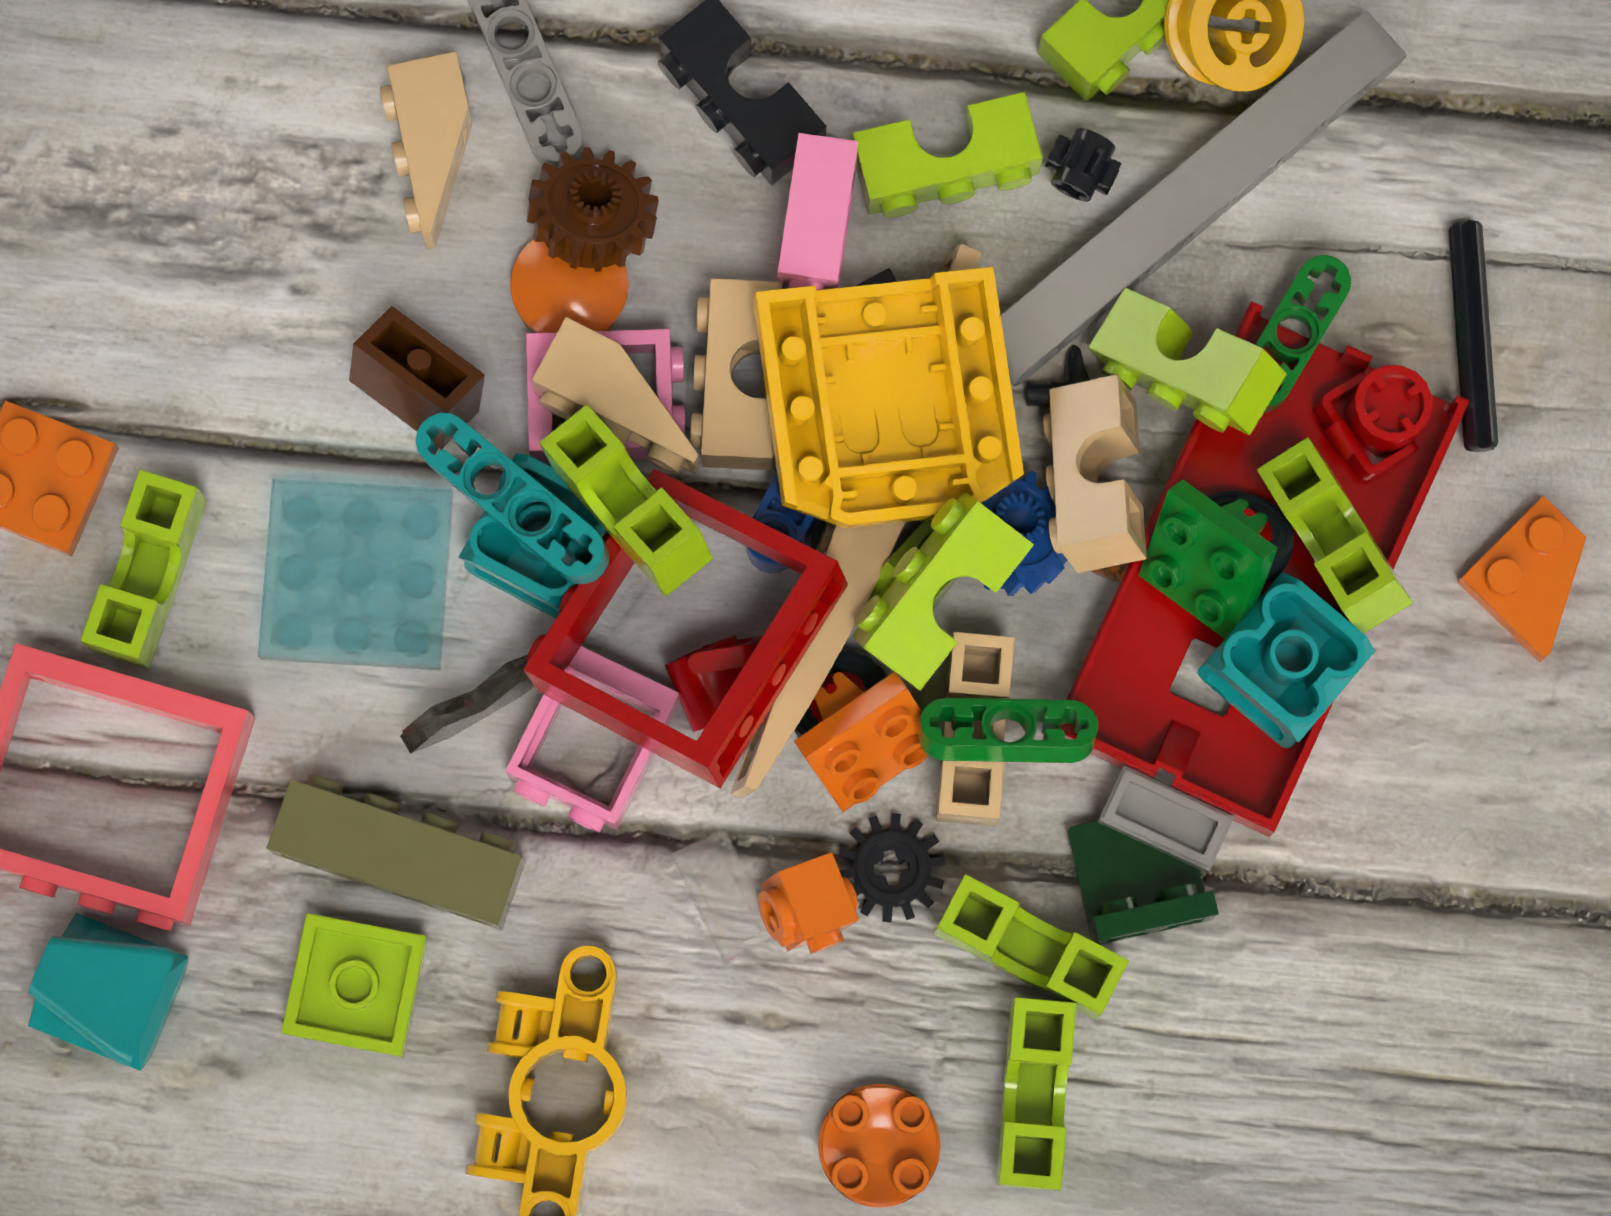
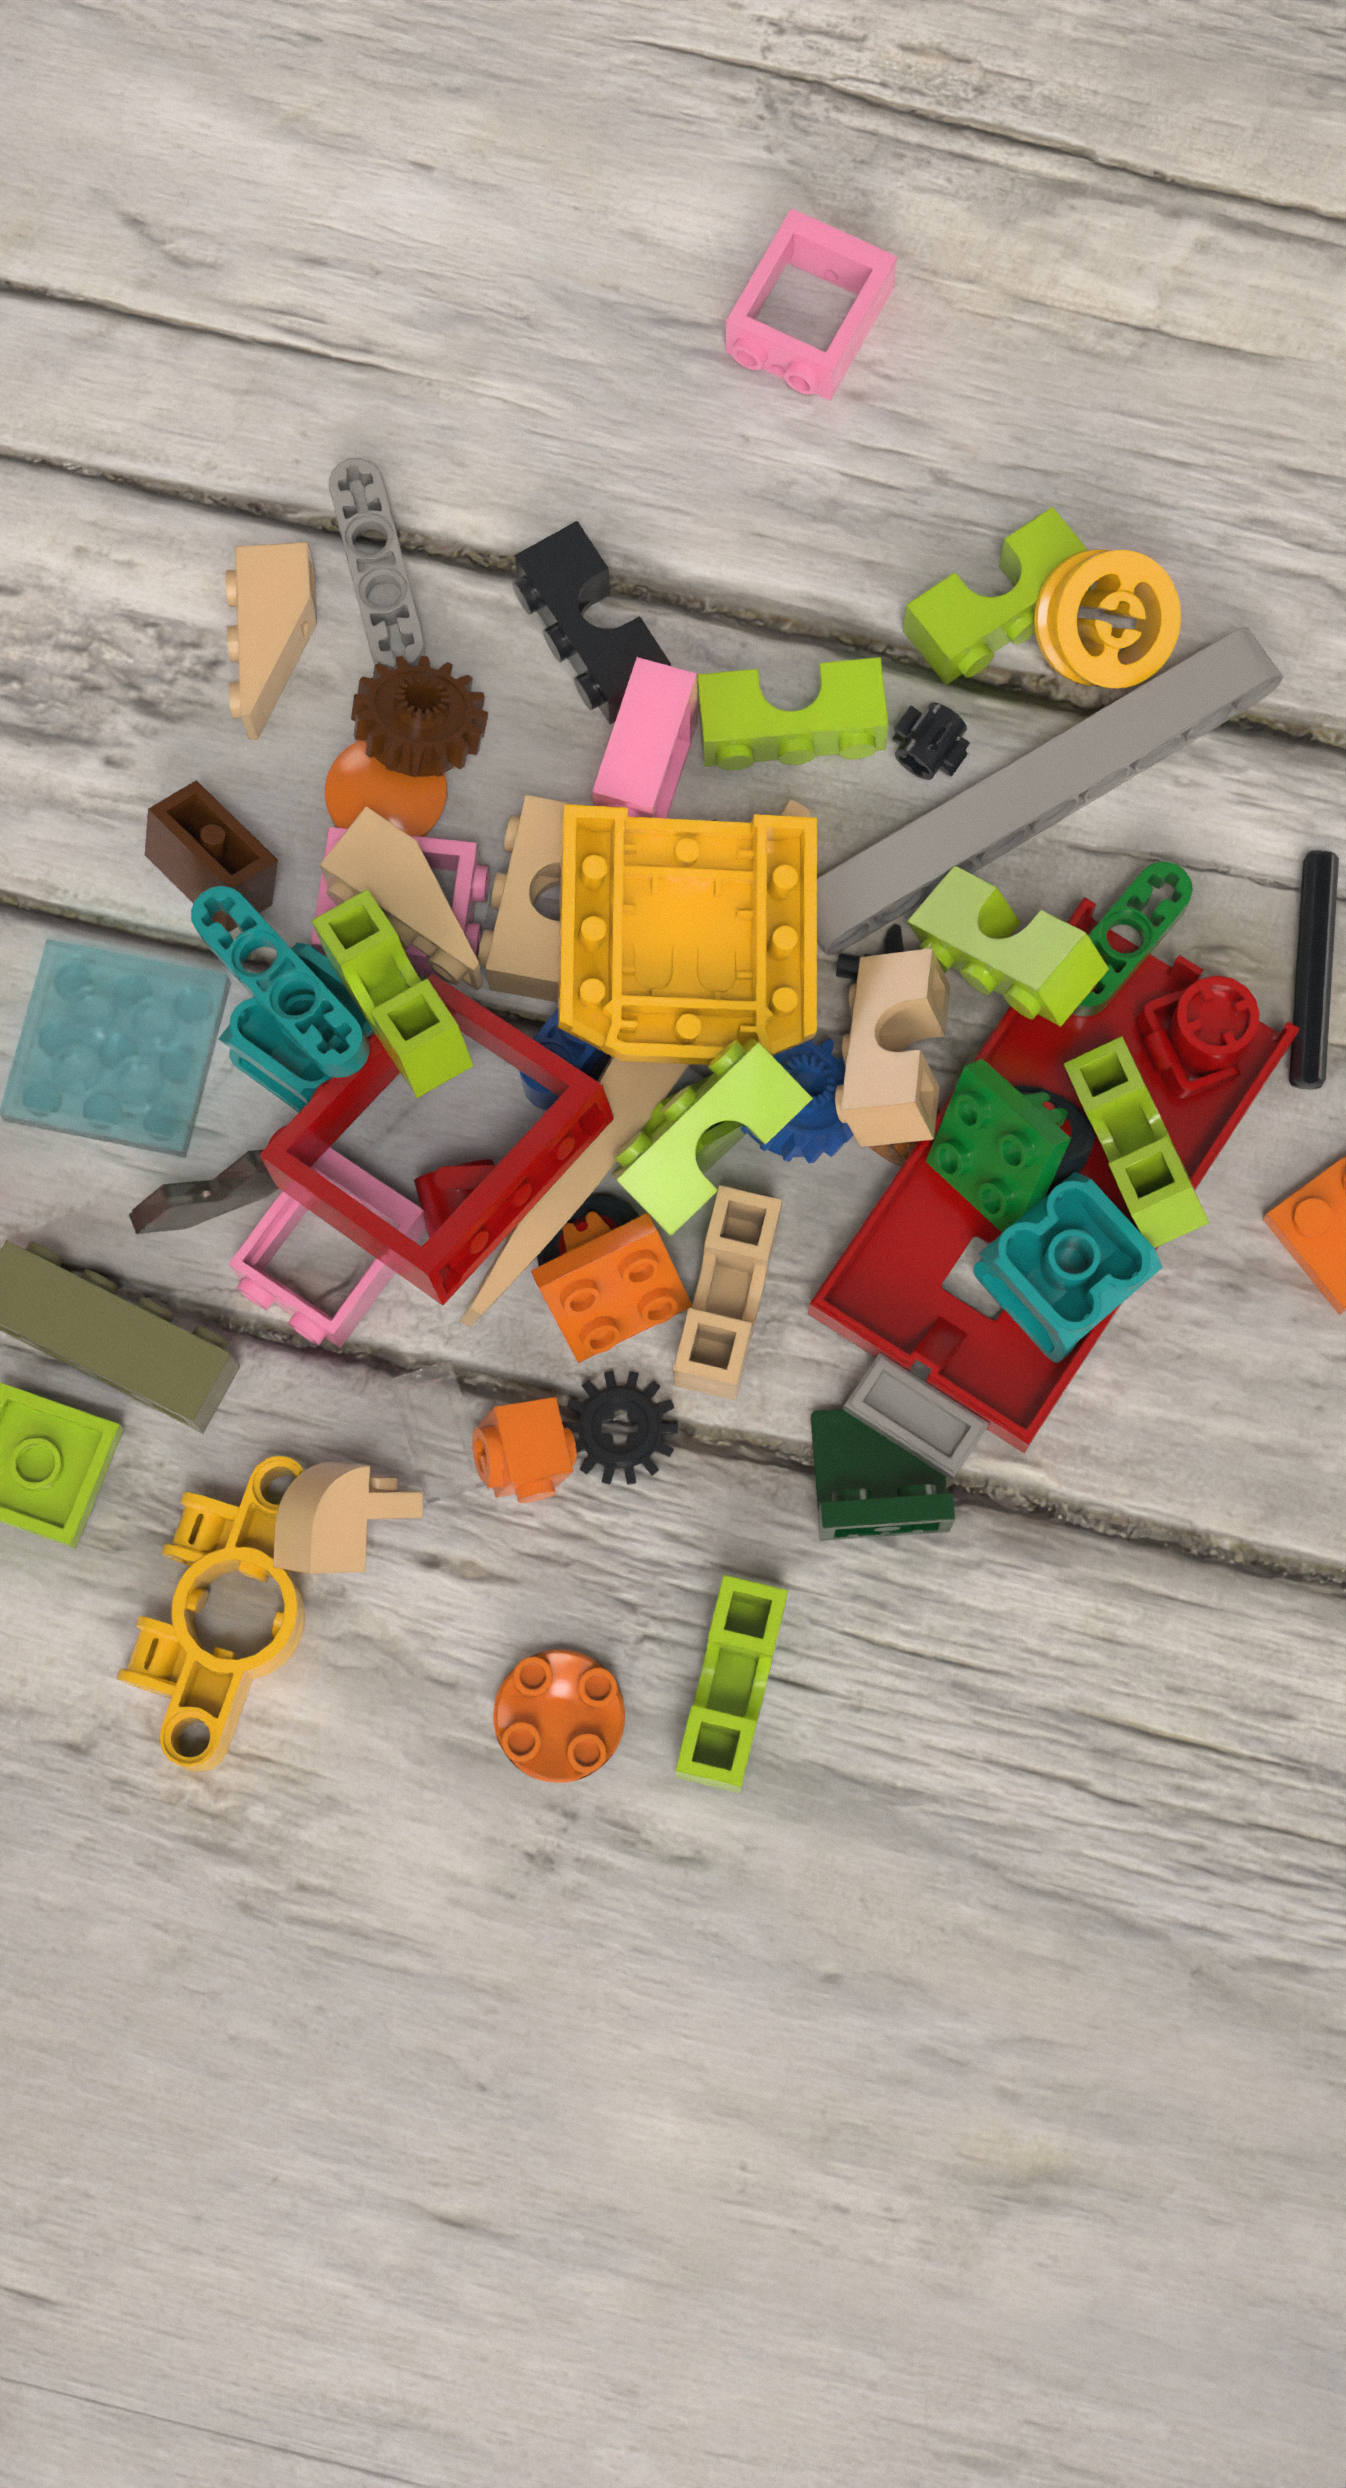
camera: 15 degrees right, 5 degrees down
(639, 996) = (327, 1514): none -> tan brick
(1026, 712) = (742, 1272): green beam -> none
(1031, 949) = (749, 1531): lime arch -> none

